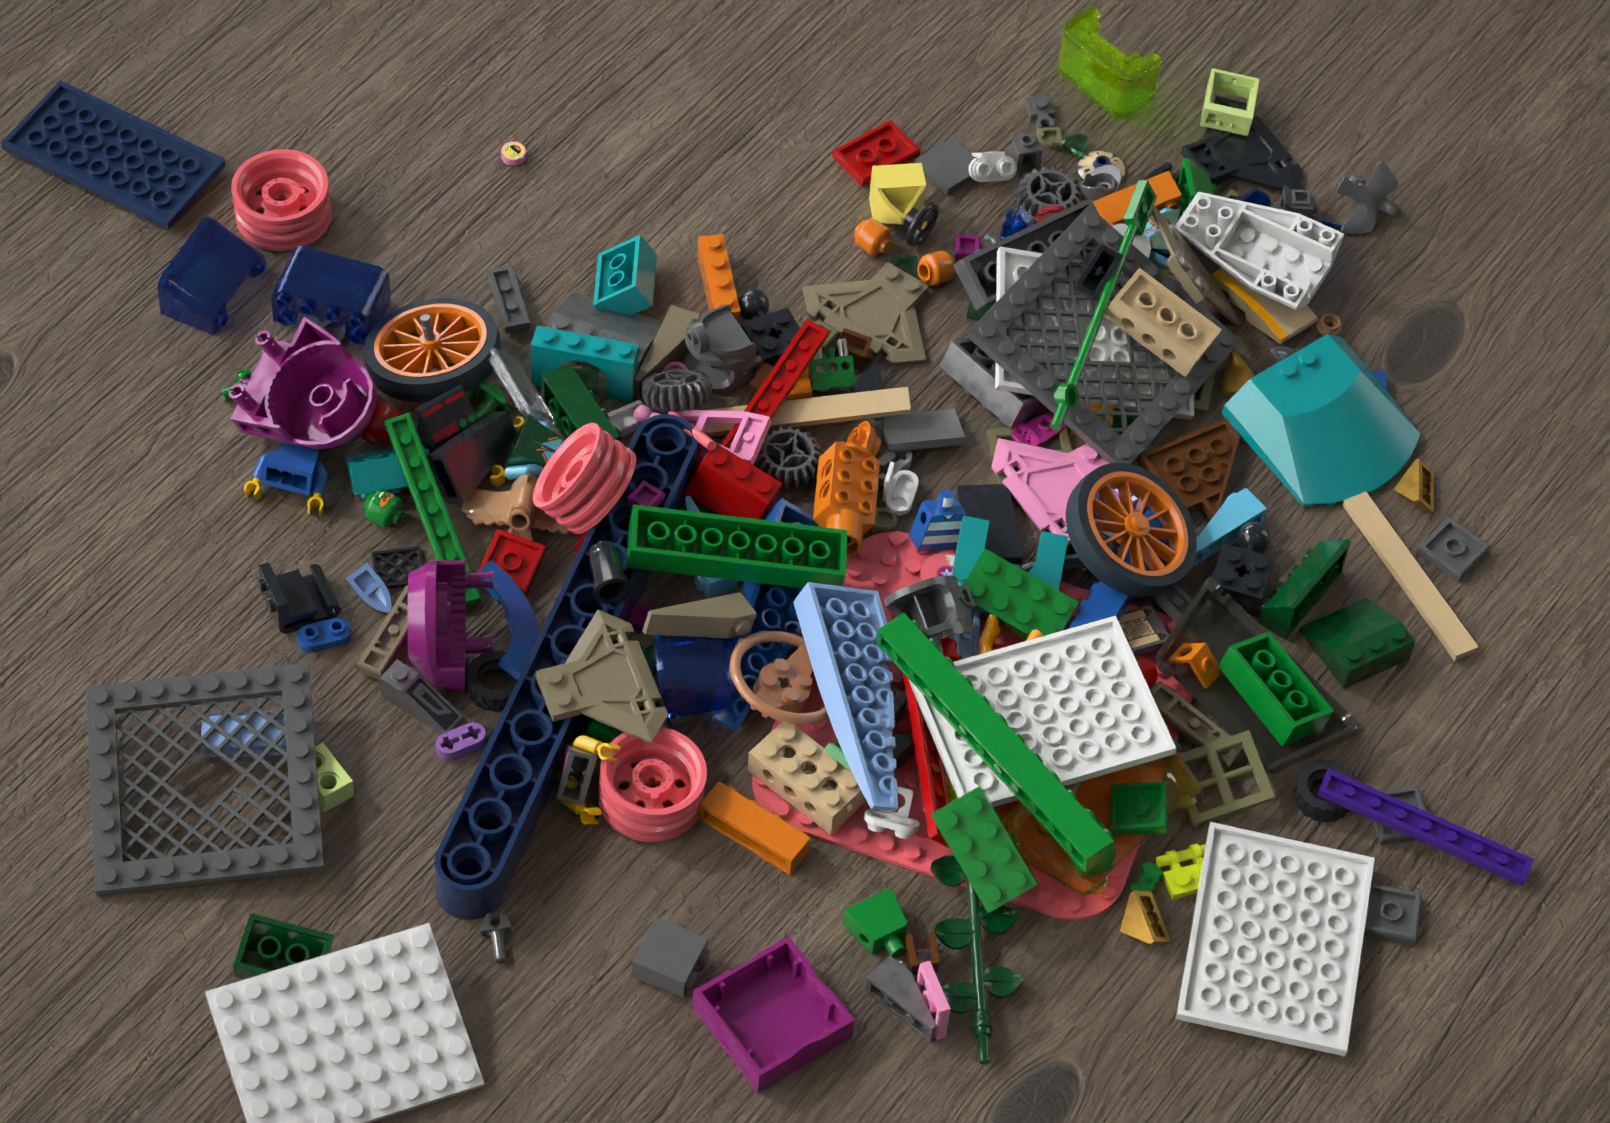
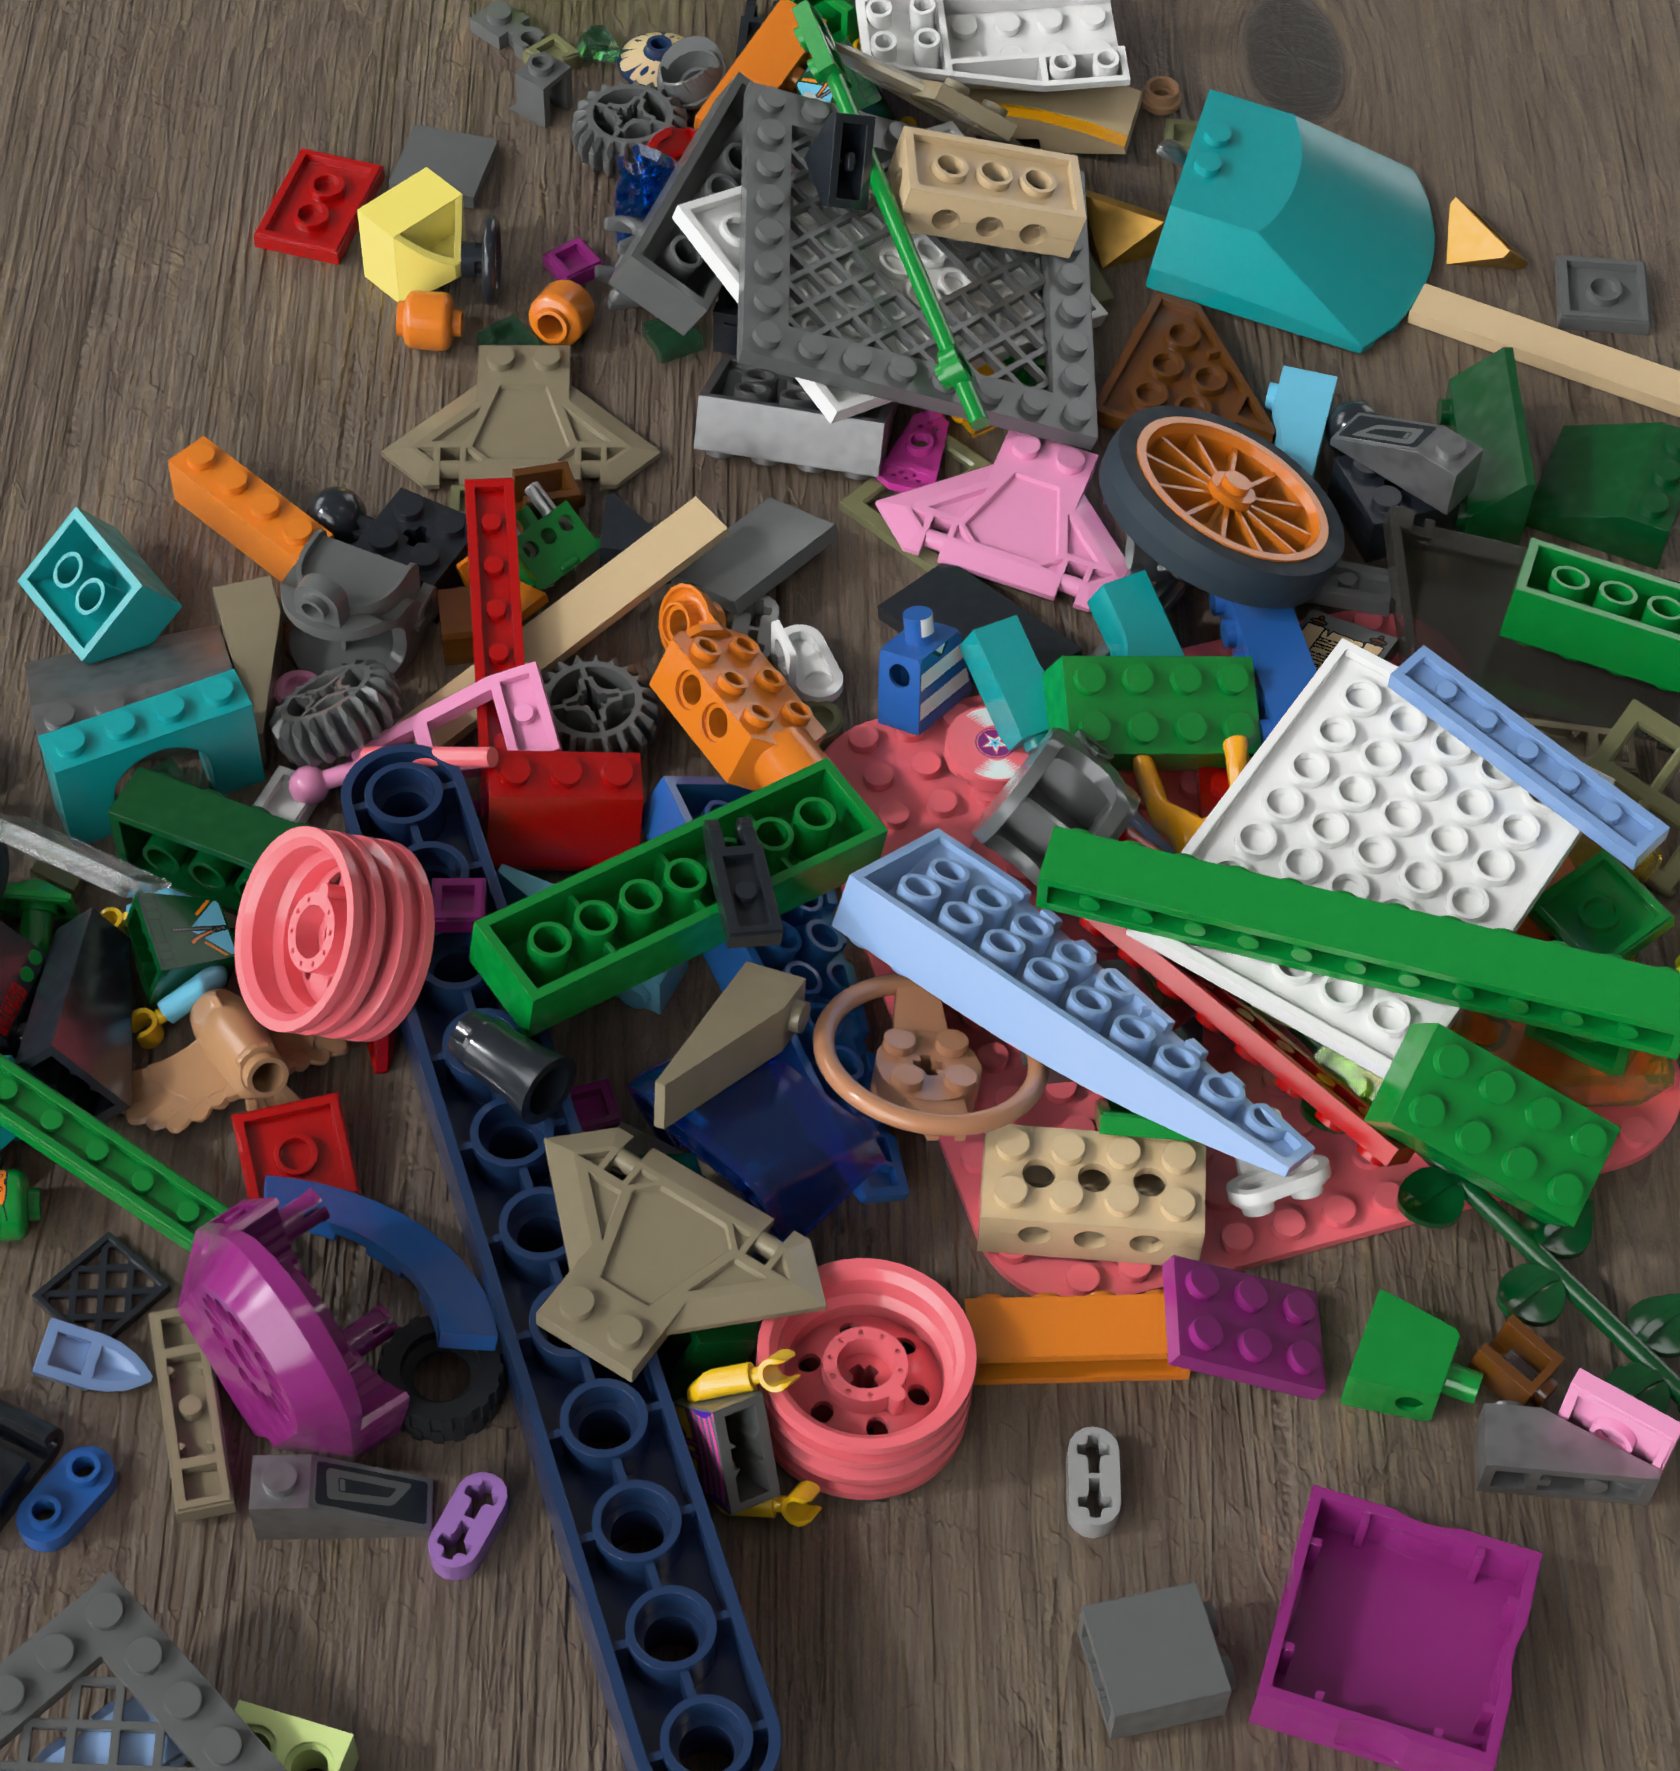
camera: 35 degrees left, 0 degrees up
(708, 880) = (1105, 1481): none -> light grey beam
(755, 558) = (742, 886): none -> black hinge
(822, 866) = (1243, 1327): none -> magenta plate
(992, 167) = (510, 132): white bracket -> none
(1141, 712) = (1528, 757): none -> medium blue plate
(1200, 660) = (1468, 638): orange bracket -> none
(1251, 563) = (1413, 455): none -> flat silver slope

